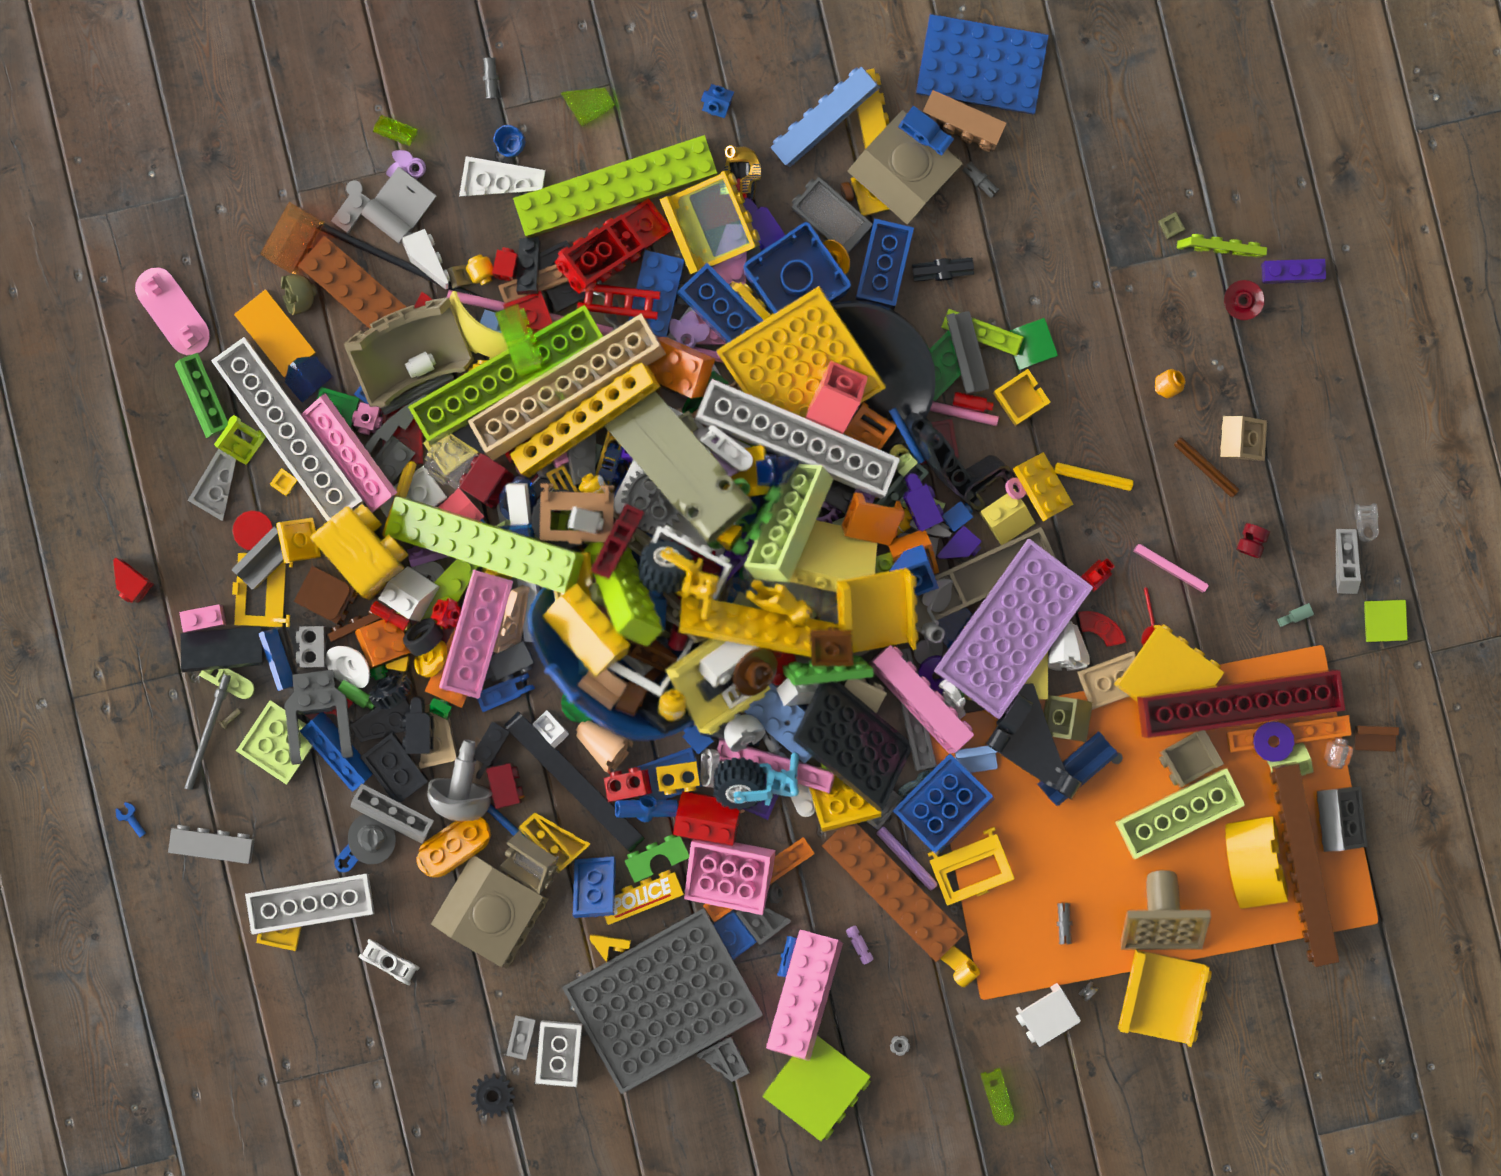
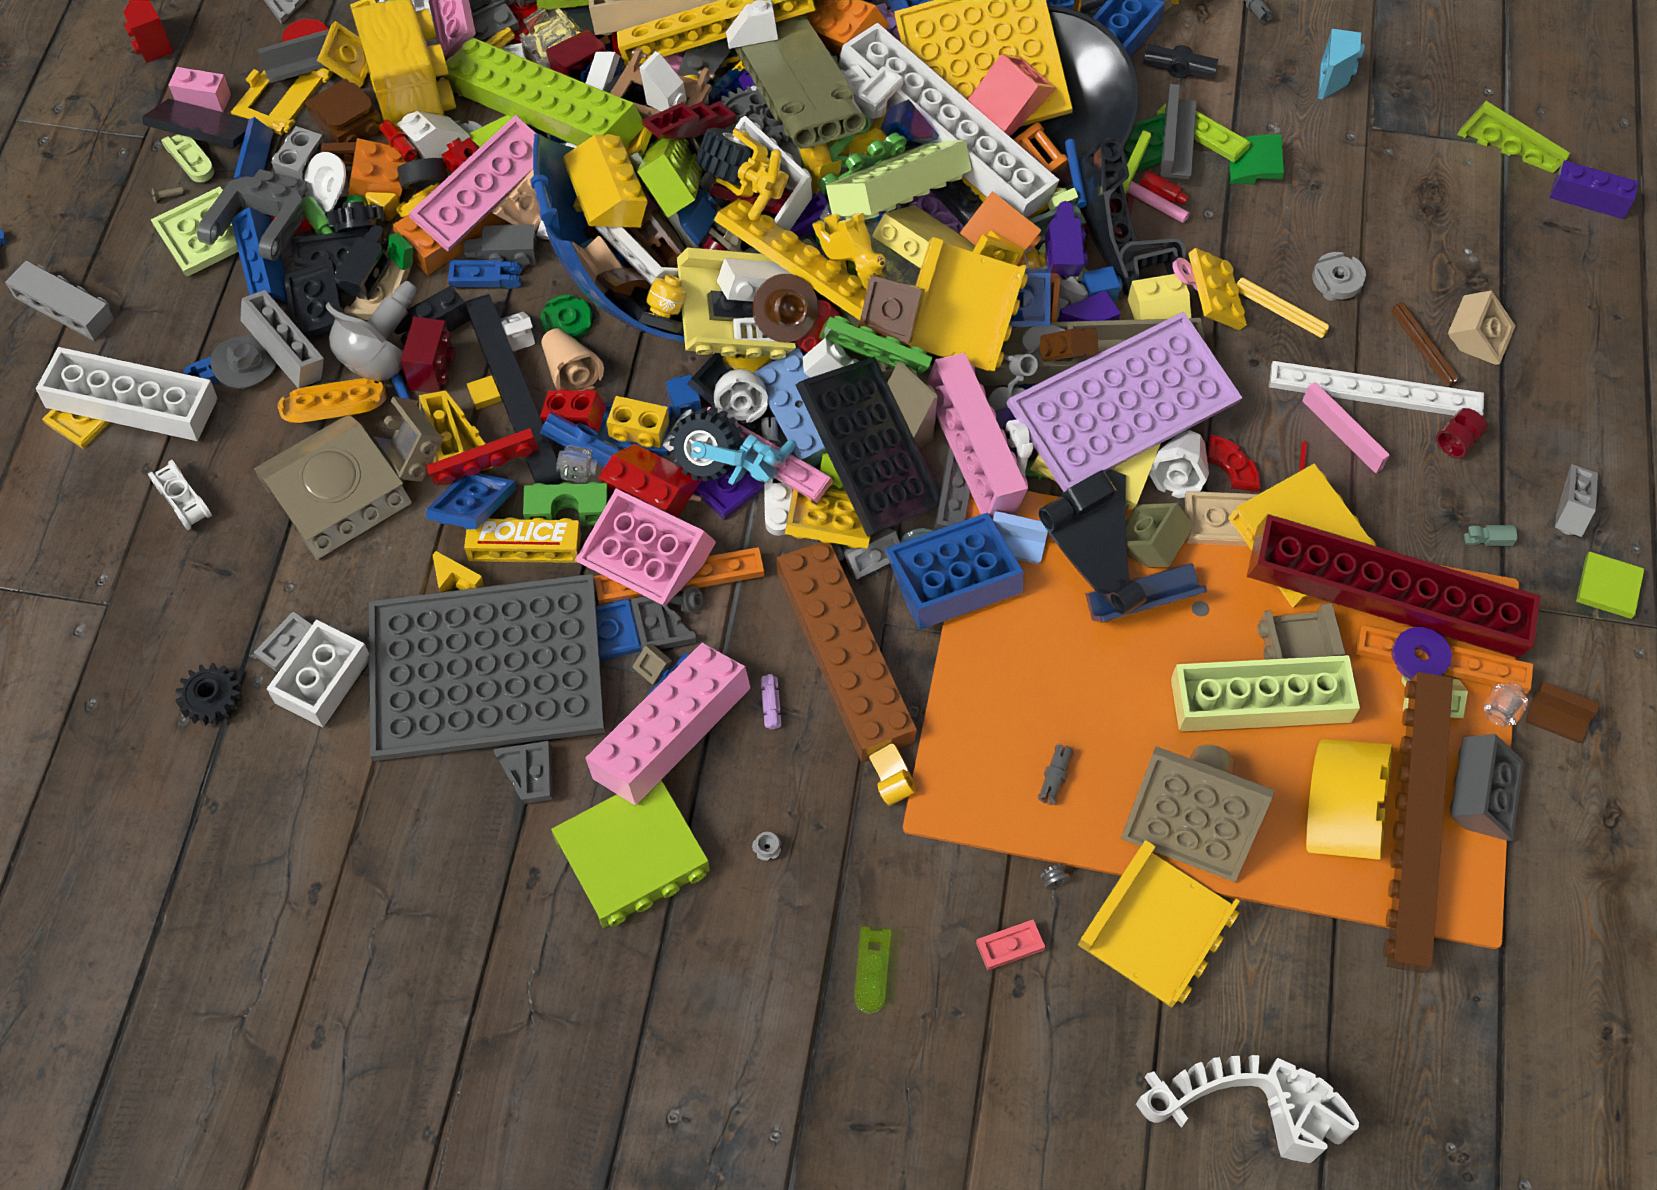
camera: 20 degrees right, 25 degrees down
(220, 695) = (169, 160): dark grey bar -> none
(419, 555) = (468, 113): medium lavender plate -> none
(553, 790) = (484, 392): none -> yellow tile
(593, 849) = (482, 457): none -> red plate
(619, 423) = (753, 25): none -> white slope
(653, 831) = (576, 464): none -> clear head
(741, 449) = (878, 89): none -> white tile
(770, 952) = (651, 663): none -> dark tan plate
(878, 543) = (999, 248): none -> yellow slope
(907, 858) = (879, 625): lavender axle -> none
(943, 402) = (1136, 158): none -> lime tile
(958, 602) = (1069, 344): none -> reddish brown brick
(966, 856) = (958, 642): yellow piece -> none
(1020, 398) = (1225, 196): yellow piece -> none
(1048, 1016) = (985, 881): white panel -> none
(1066, 227) = (1339, 61): none -> medium azure slope
(1077, 1047) = (1010, 945): none -> coral plate
(1098, 573) = (1253, 398): red hips -> none
(1126, 443) = (1334, 287): none -> light grey plate
(1169, 383) = (1408, 243): light orange head -> none
(1171, 225) = (1458, 110): olive tile -> none
(1182, 521) = (1375, 389): none -> white tile
(1249, 291) = (1524, 197): dark red dish -> none
(1285, 1081) = (1300, 1104): none -> white piece
(1367, 520) = (1614, 467): clear piece -> none

